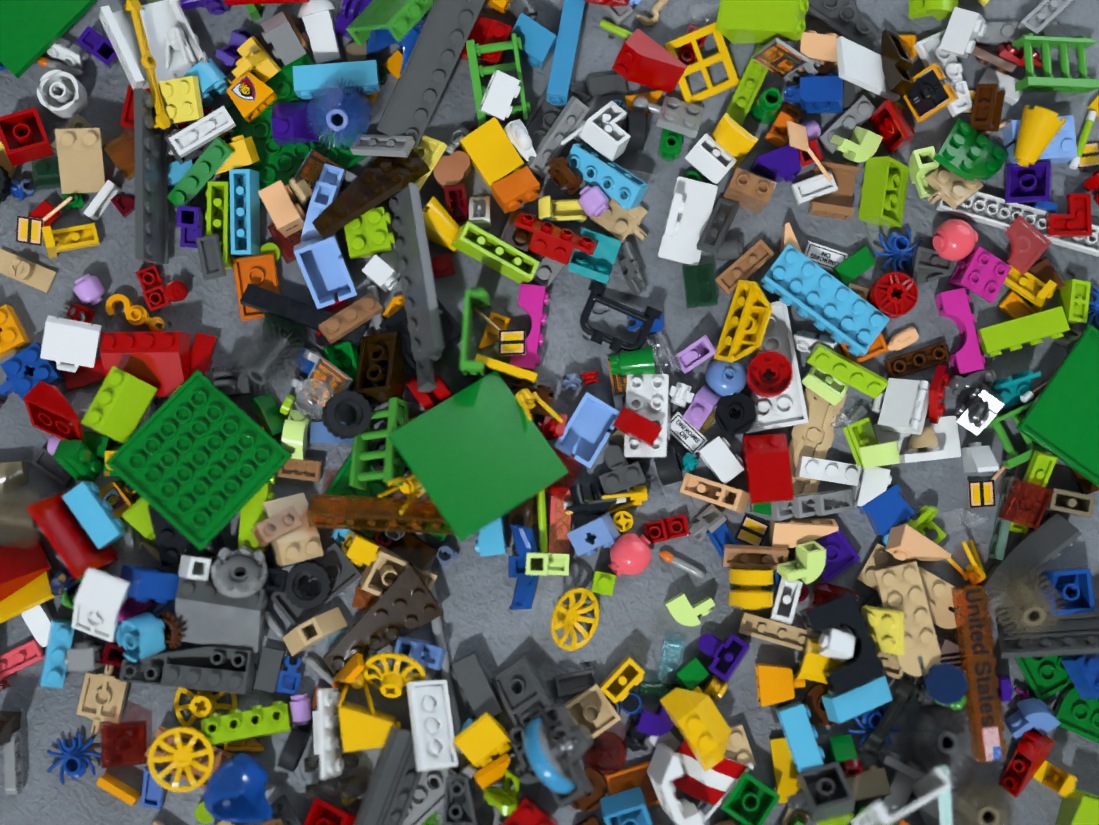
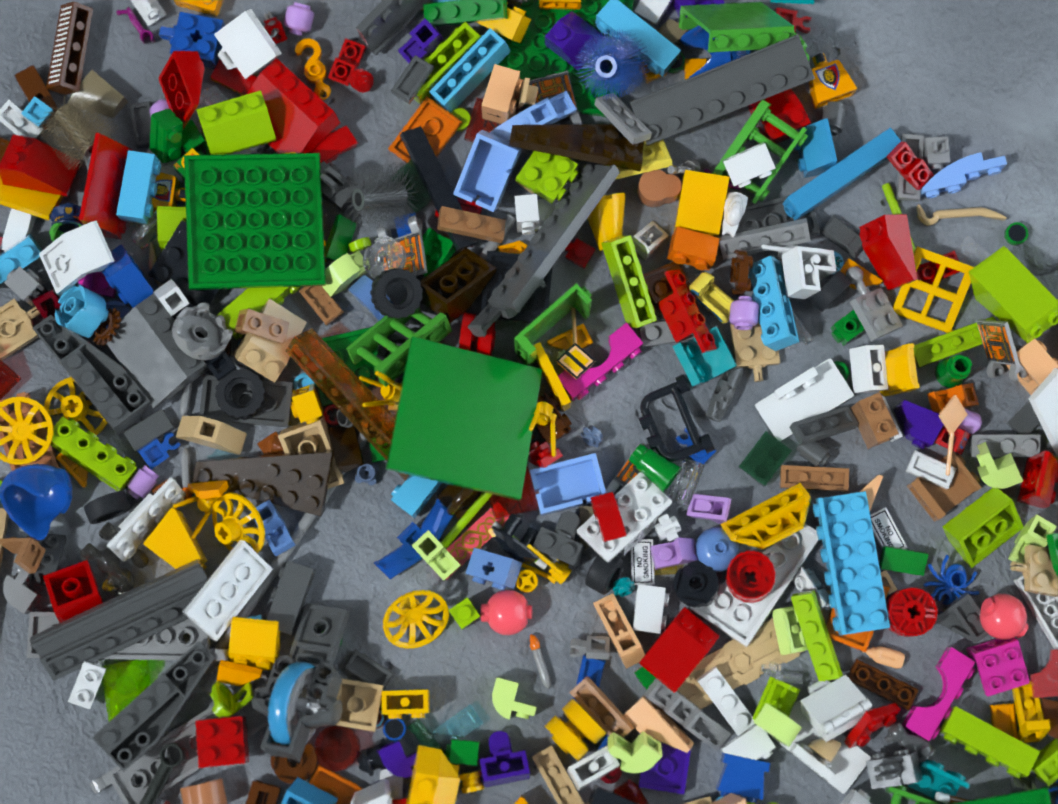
camera: 50 degrees right, 5 degrees down
(457, 202) = (639, 214): dark red slope -> none
(590, 377) = (610, 447): red bush -> none
(667, 528) = (555, 621): red slope -> none
(752, 531) = (619, 691): piece -> none
(817, 93) = (1003, 399): blue hinge -> none

